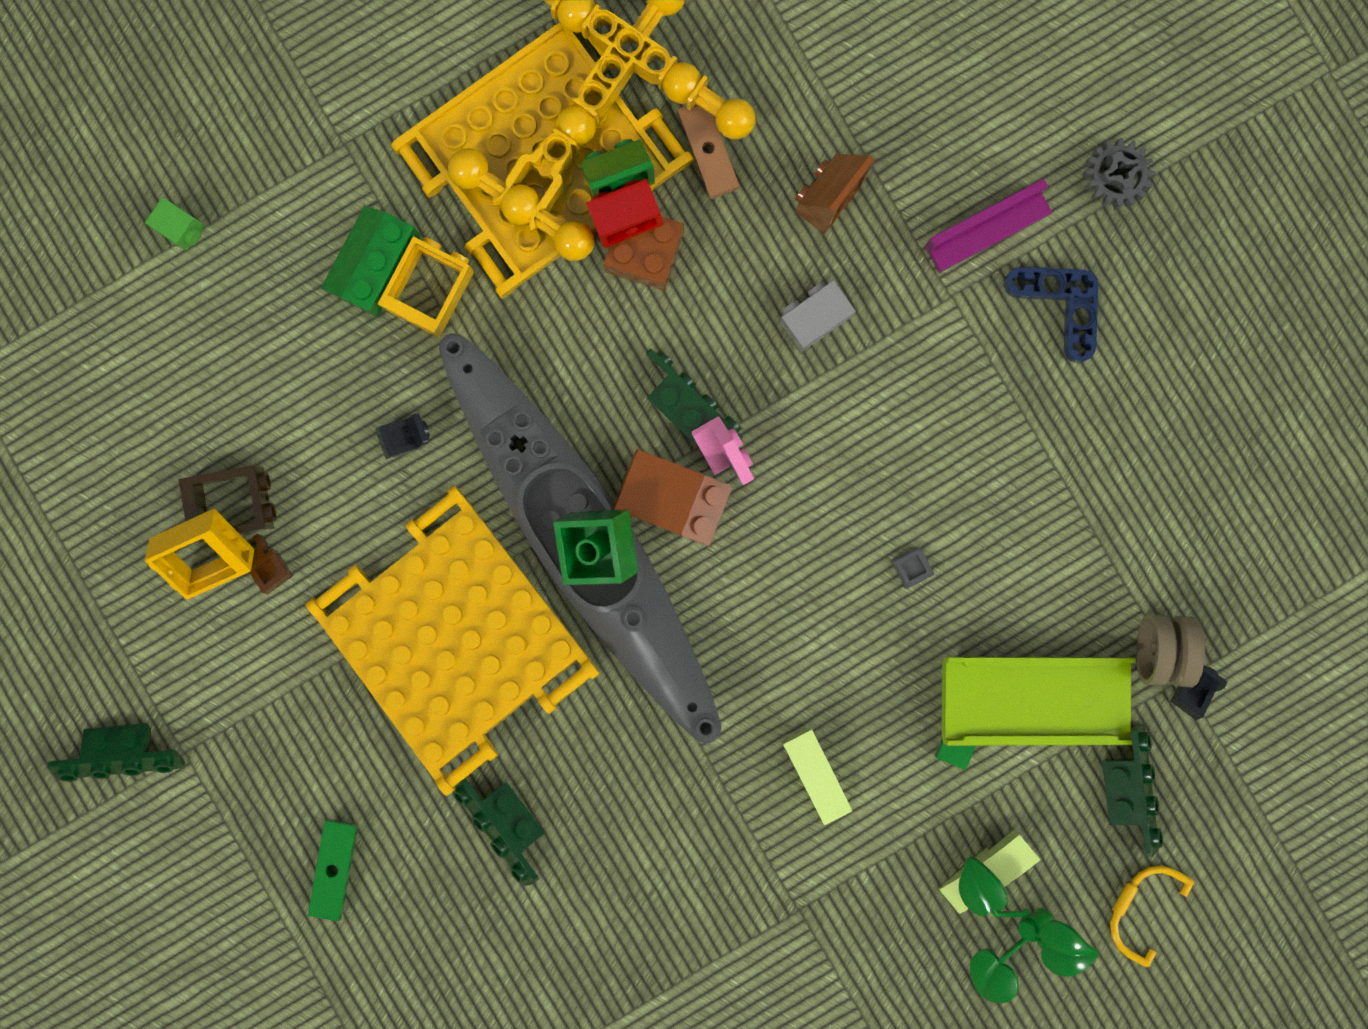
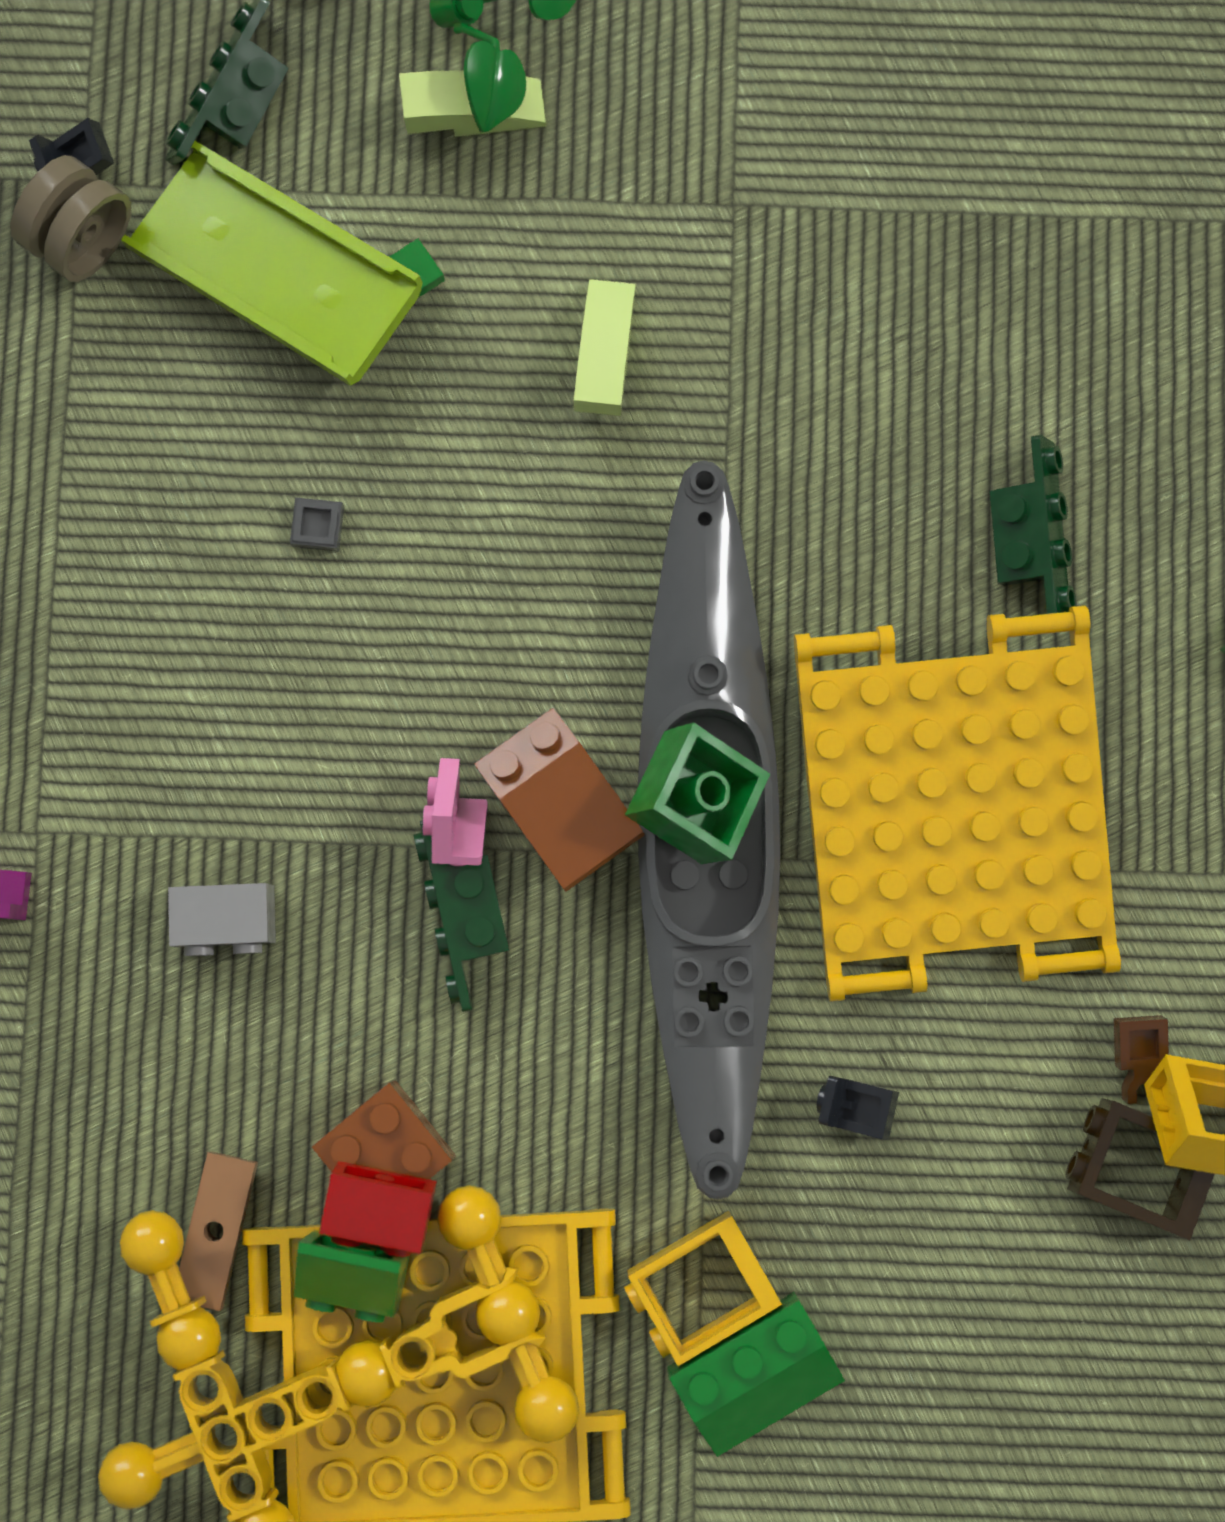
camera: 150 degrees left, 5 degrees down
(833, 189) = (88, 1065): dark orange slope -> none

